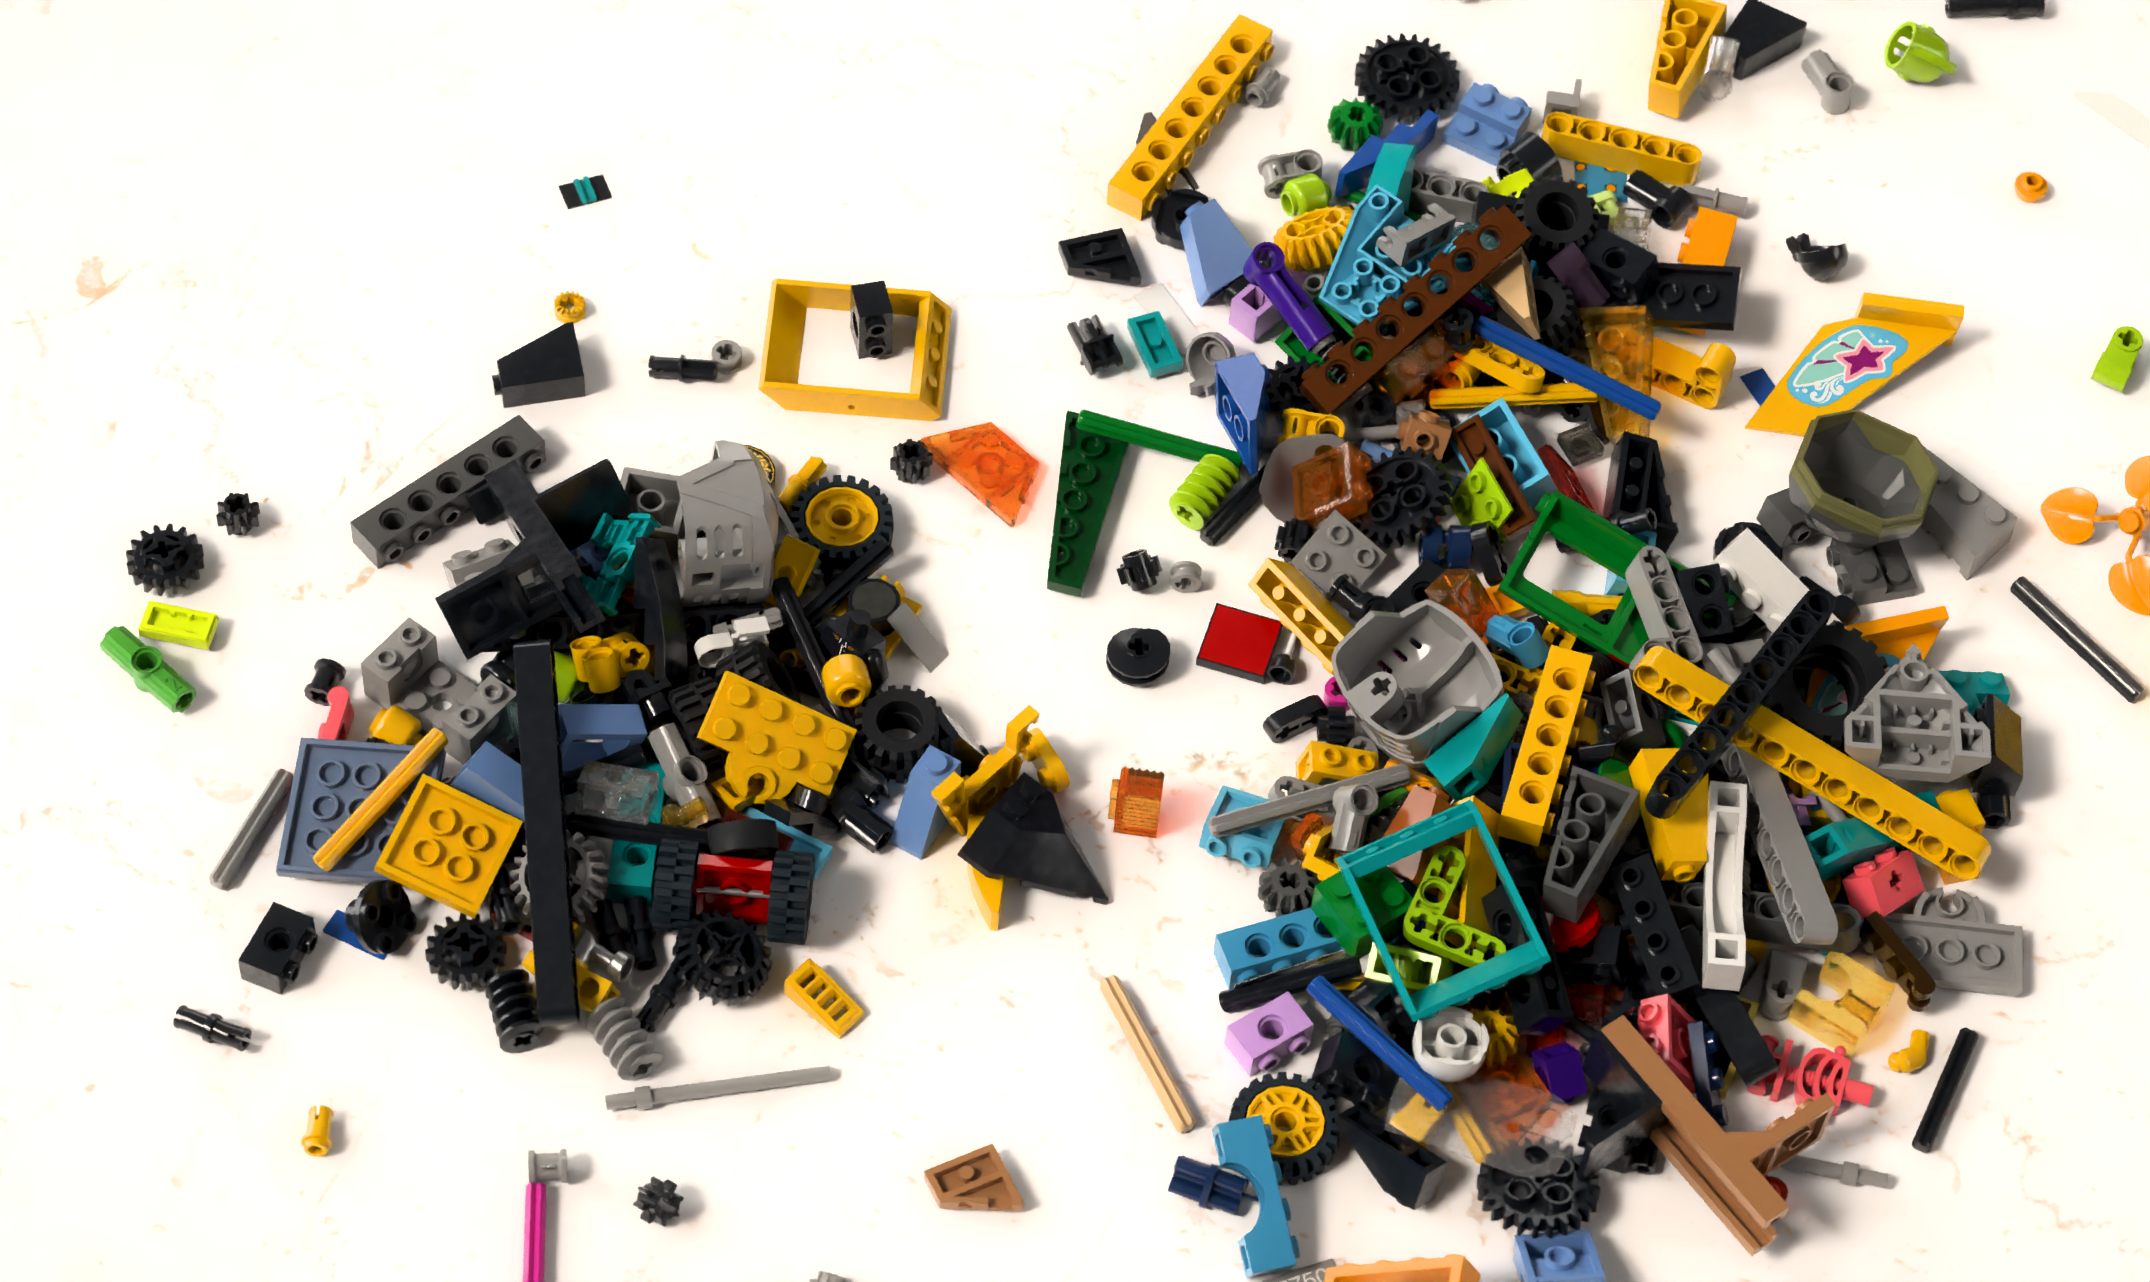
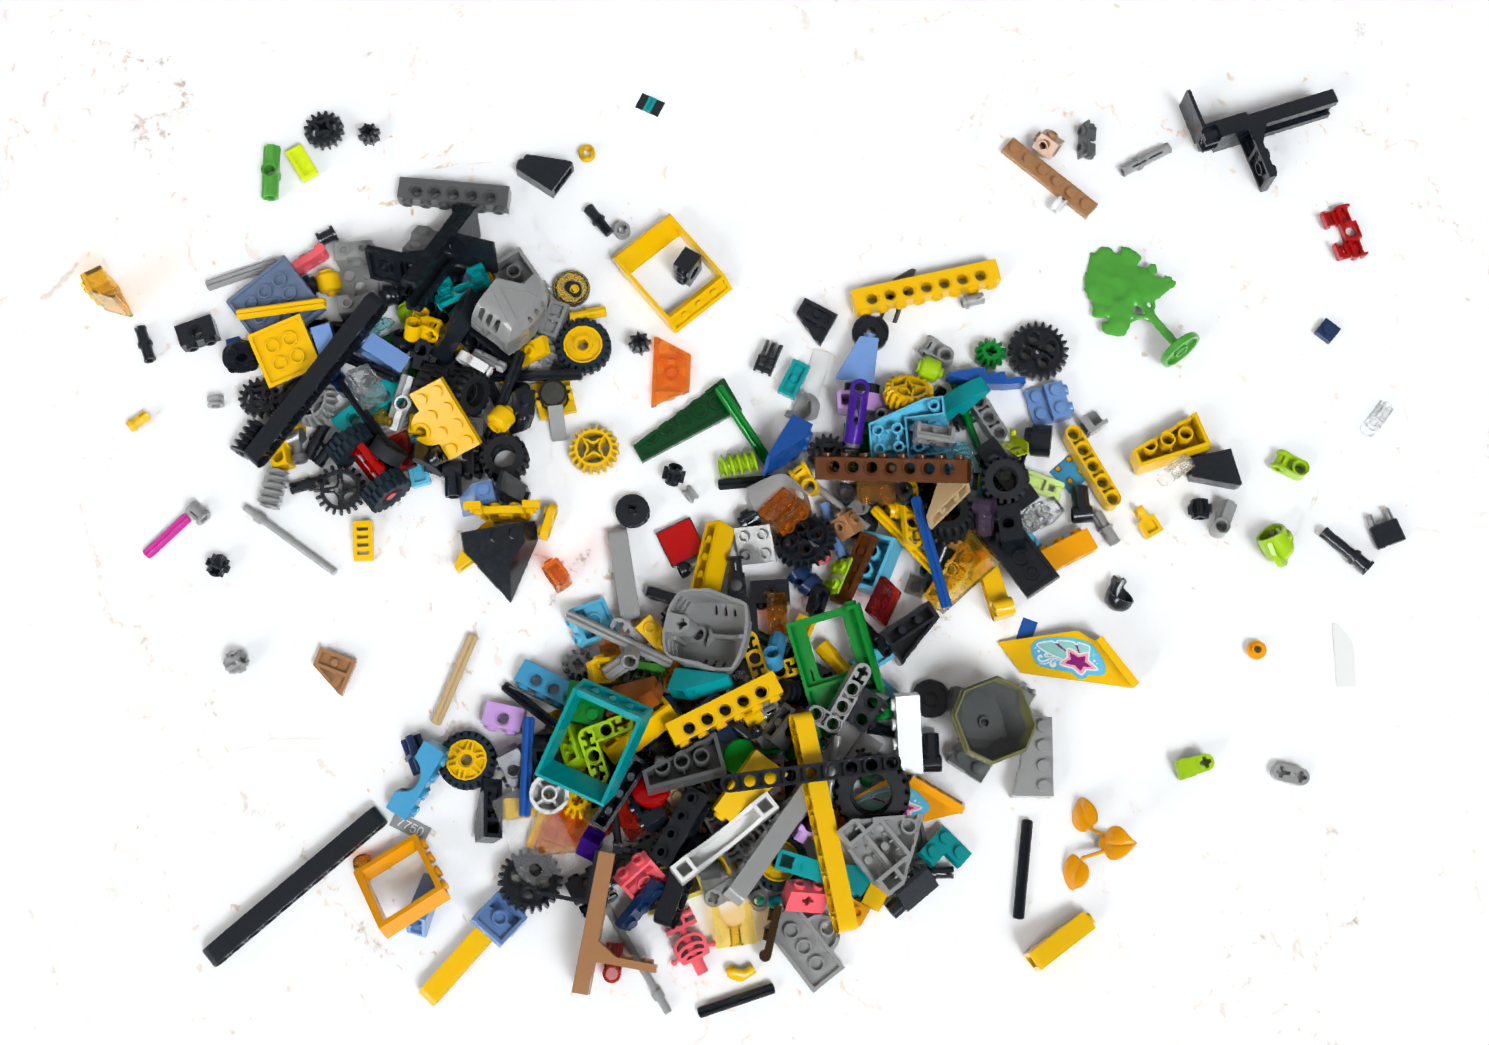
camera: 50 degrees right, 20 degrees up
(92, 992) = (105, 291): none -> clear yellow slope
(406, 1009) = (215, 401): none -> light grey bush
(1021, 619) = (583, 438): none -> yellow gear
(1213, 735) = (623, 574): none -> light grey beam
(1755, 155) = (1148, 525): none -> yellow plate
(1792, 91) = (1199, 509): none -> black gear

